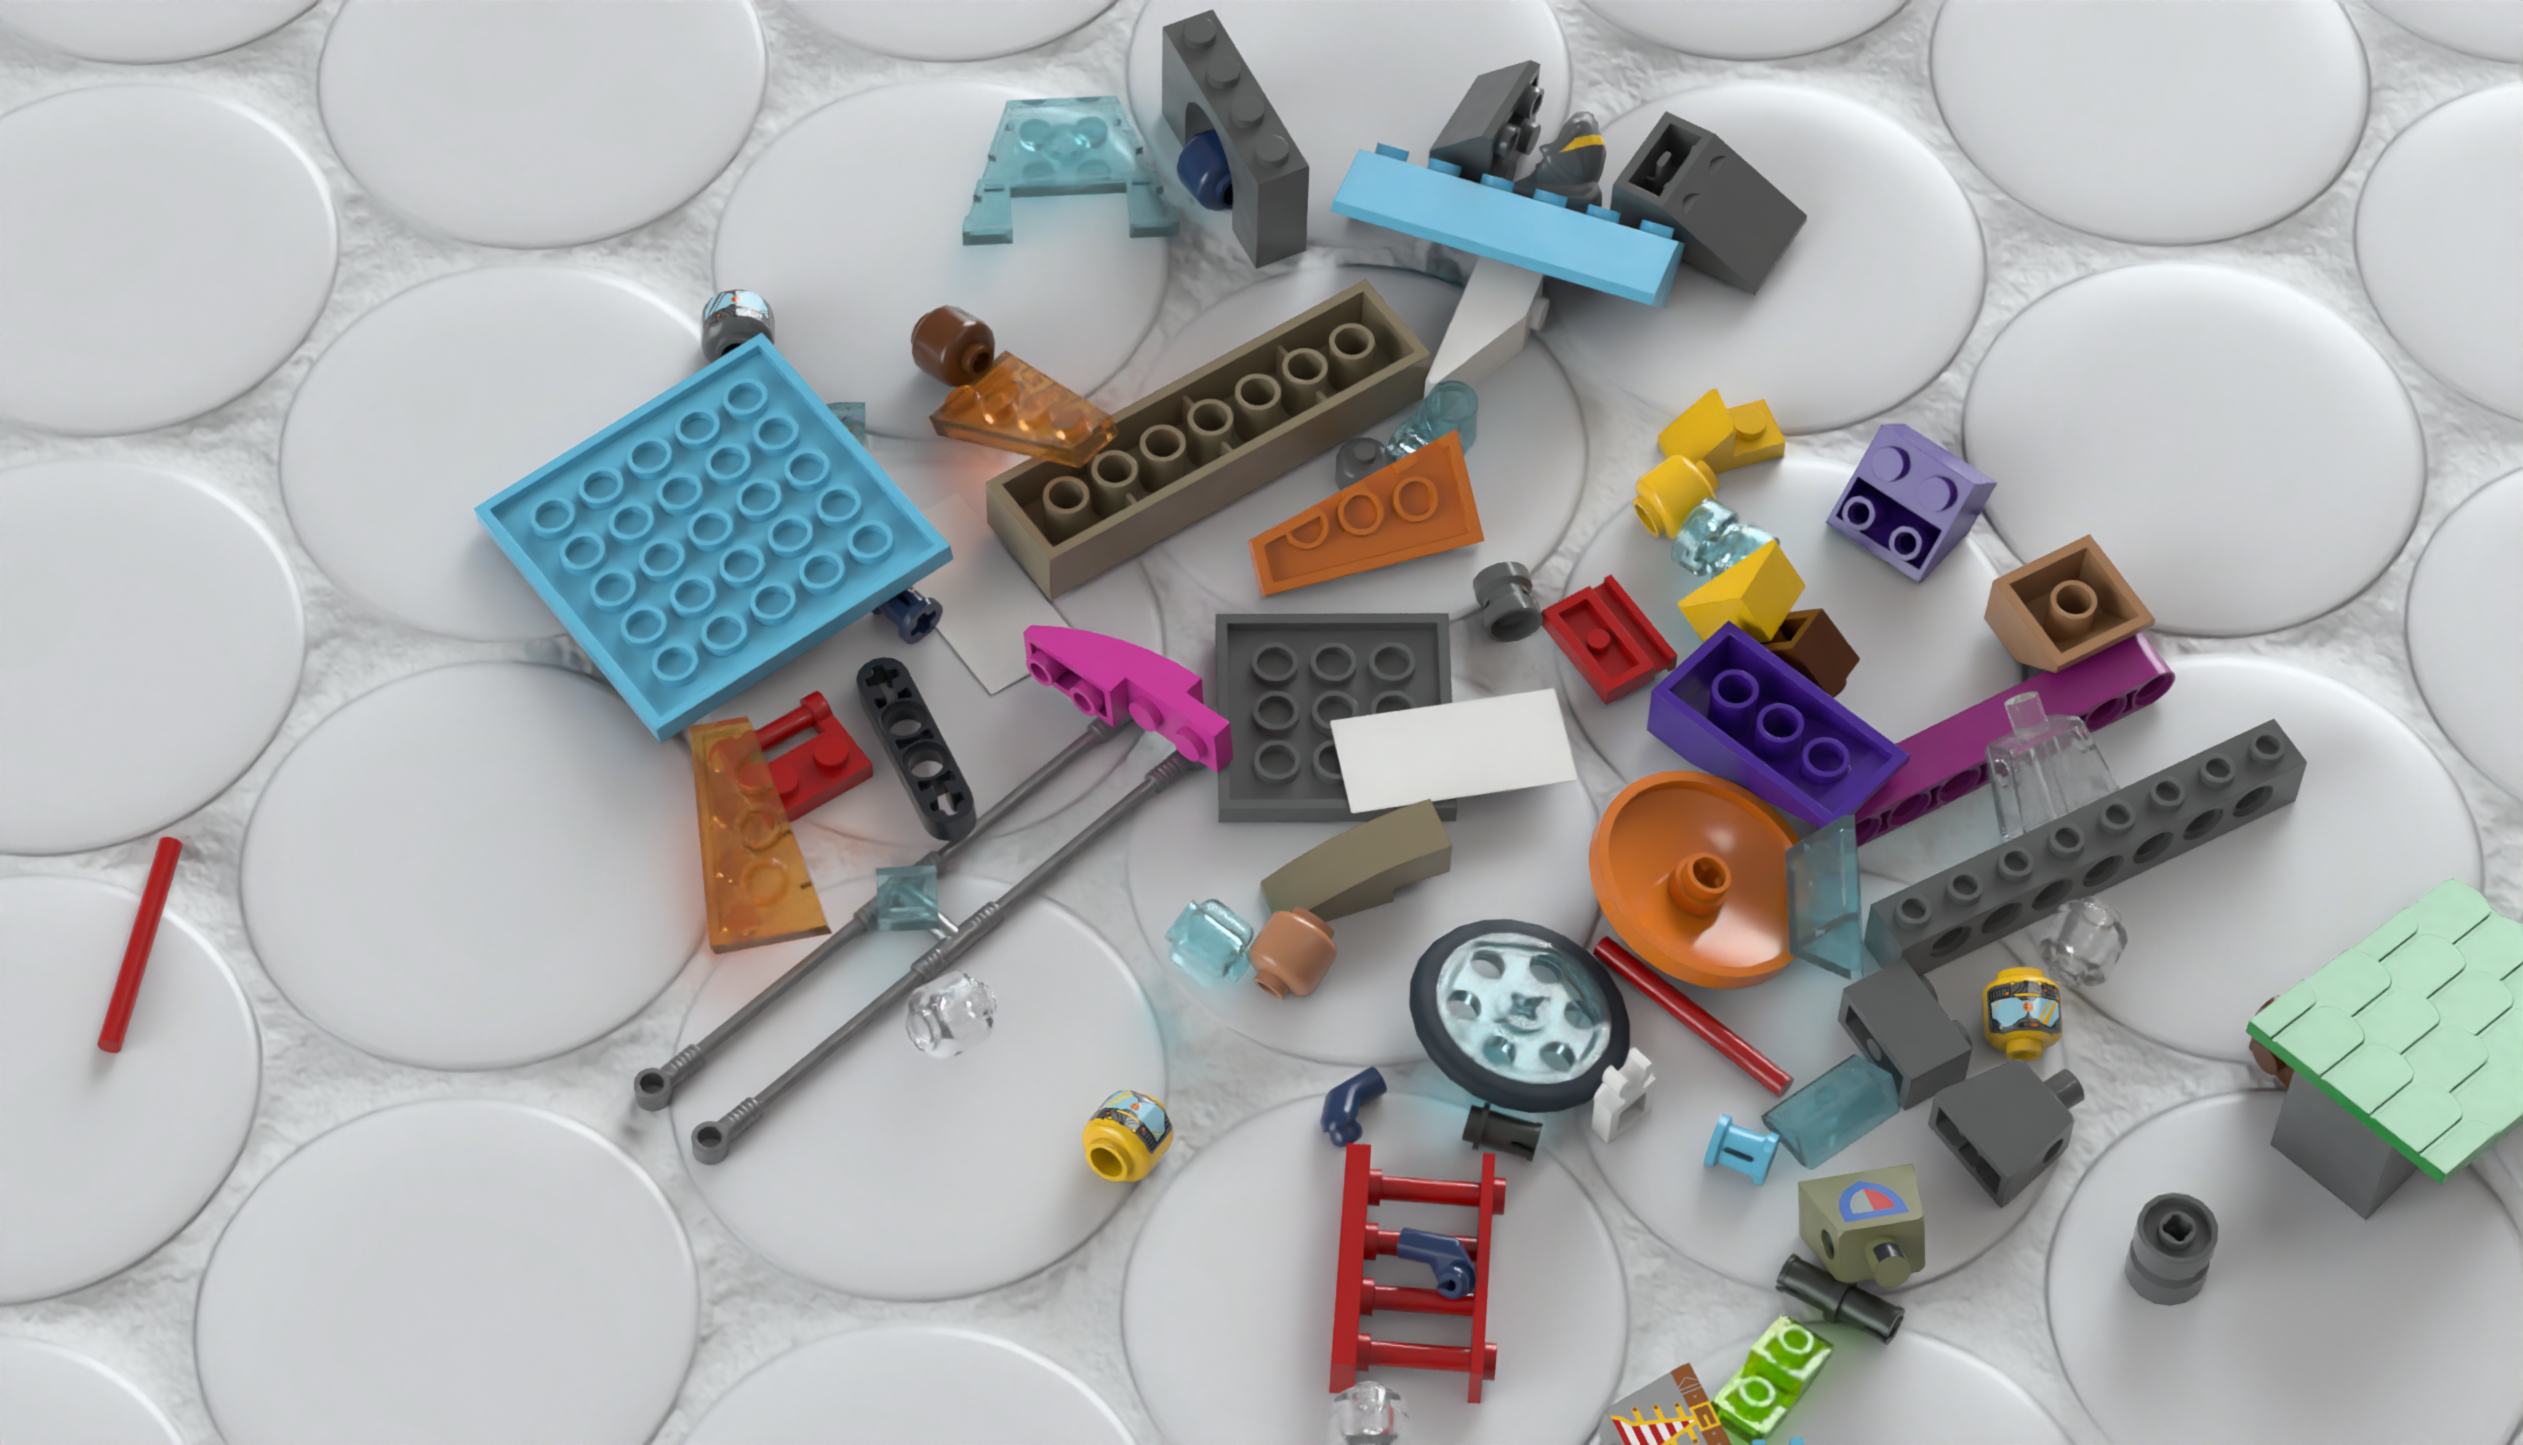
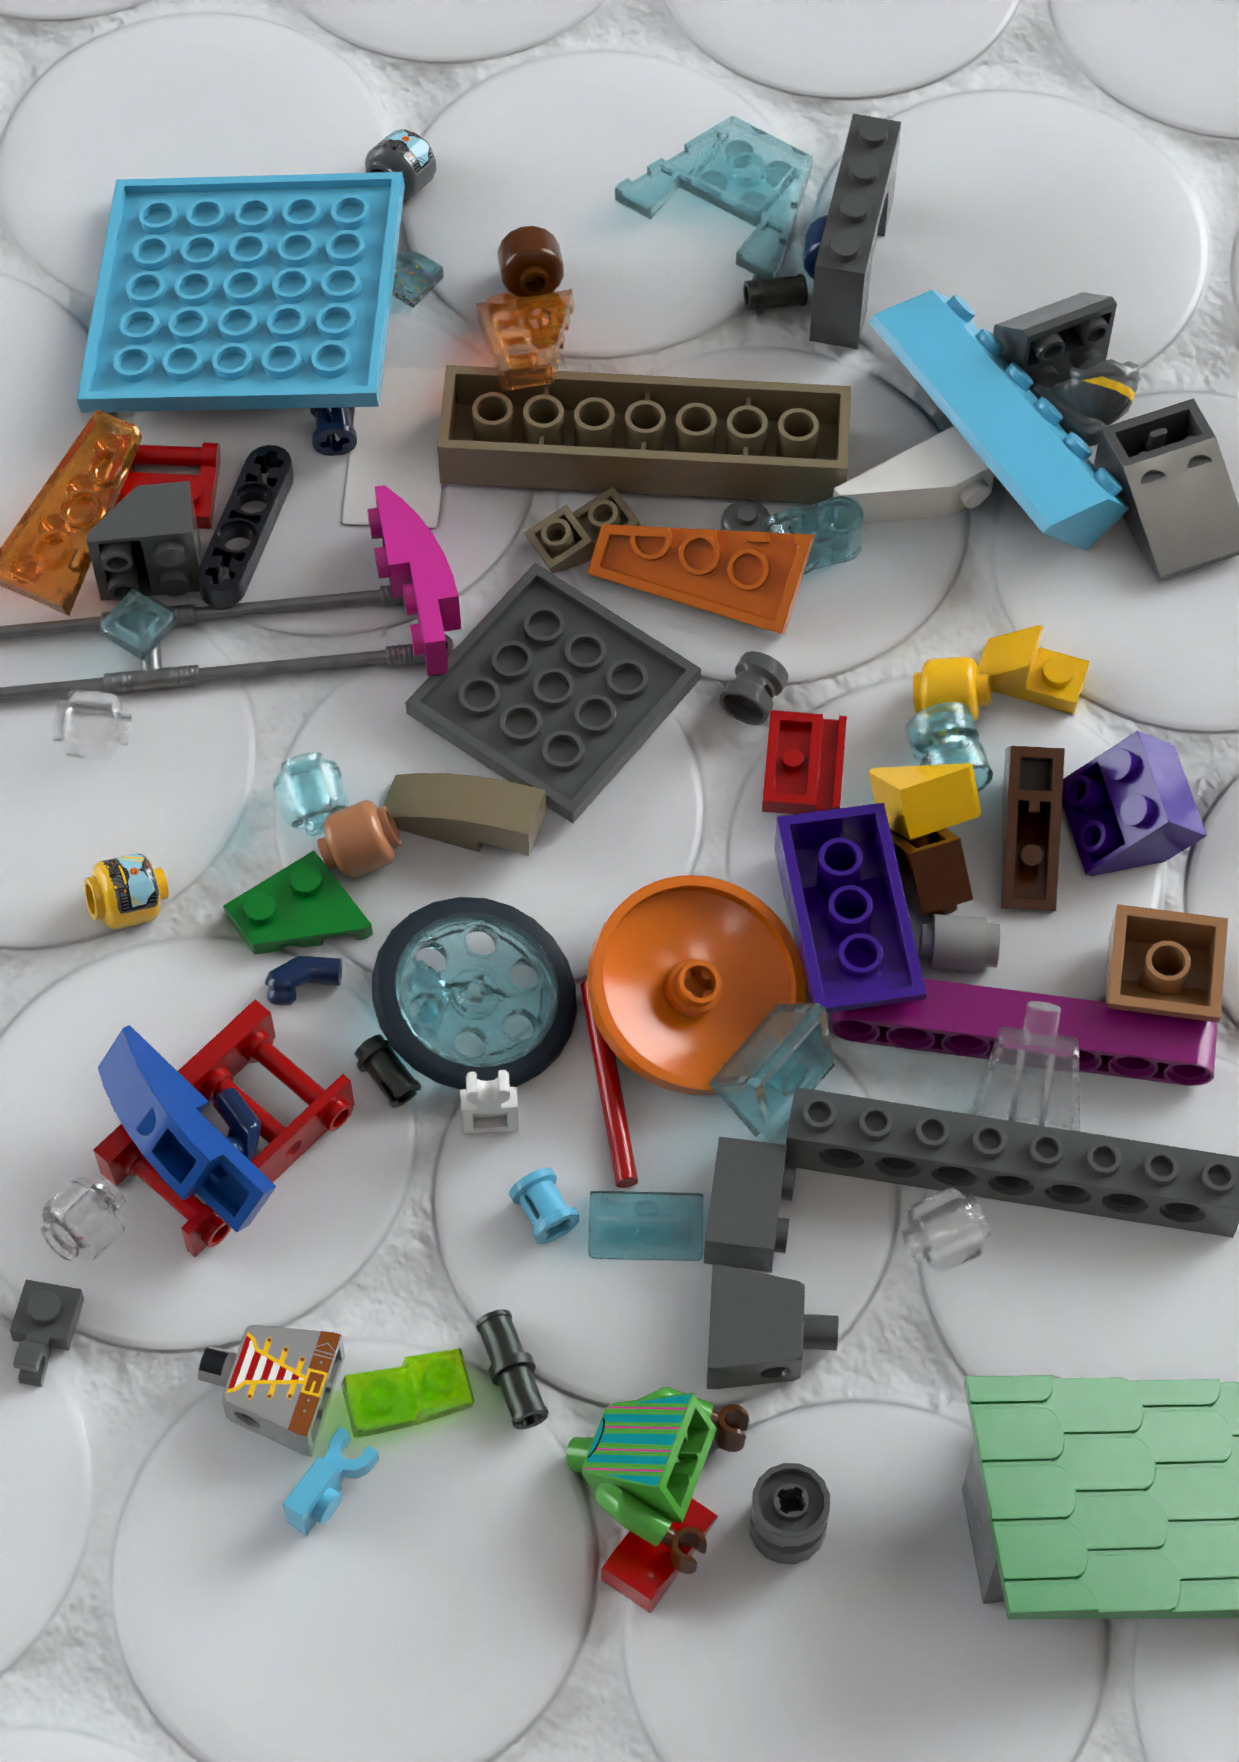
camera: 40 degrees right, 5 degrees up
(866, 813) = (147, 543): none -> dark grey slope
(1184, 249) = (774, 292): none -> pearl dark grey pin
(1222, 562) = (570, 538): none -> dark tan slope
(1287, 1052) = (296, 909): none -> green wing
(1402, 1289) = (167, 1126): none -> blue slope
(1453, 750) = (609, 770): white sticker -> none
(1845, 566) = (1031, 827): none -> reddish brown slope
(1865, 1224) = (576, 1329): olive torso -> none
(1884, 698) = (960, 943): none -> light grey brick
(2022, 1013) = (849, 1251): head -> none
(2031, 1287) = (650, 1462): none -> bright green torso
(2086, 1357) = (646, 1571): none -> red slope

